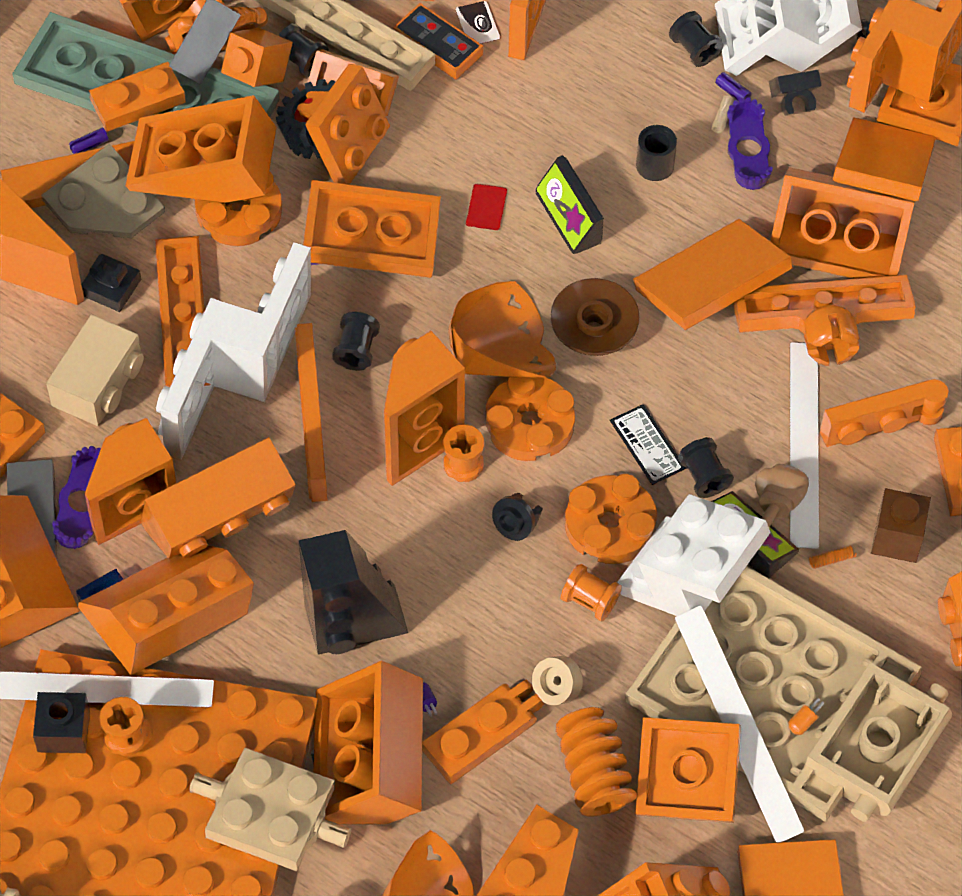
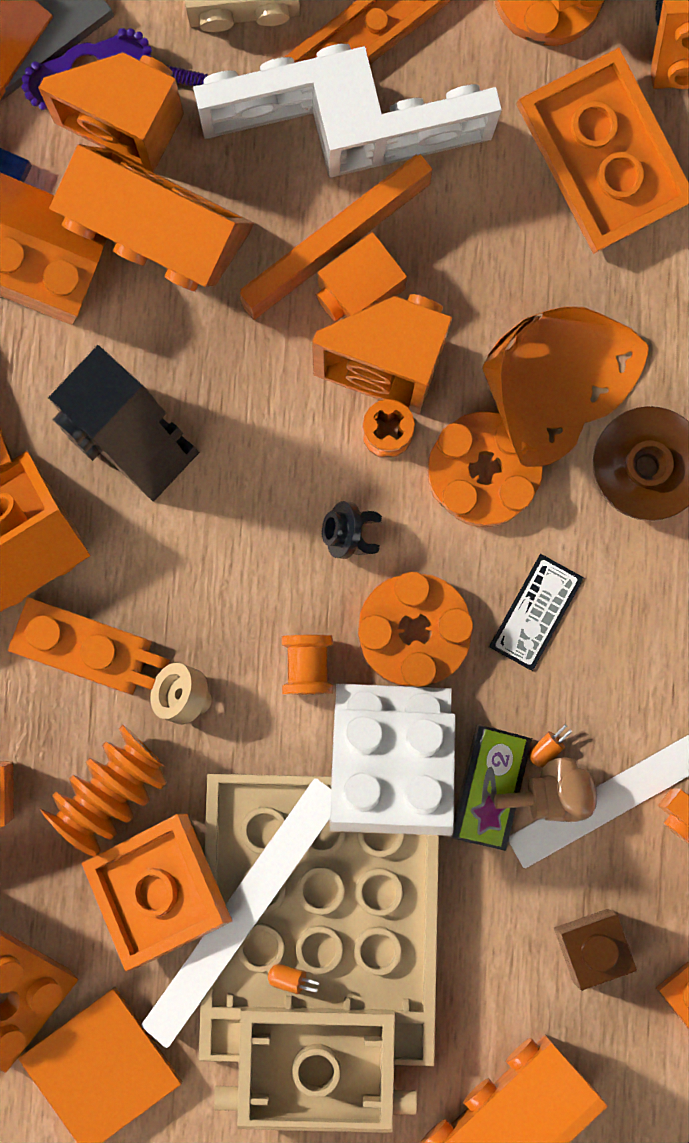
camera: 55 degrees right, 25 degrees up
(352, 413) = (359, 279): none -> orange brick
(356, 341) = (454, 227): black bush -> none
(429, 700) = (88, 568): dark purple piece -> none
(705, 467) = (537, 695): black bush -> none
(745, 486) = (548, 748): none -> orange piece
(832, 555) = (505, 882): orange leg -> none

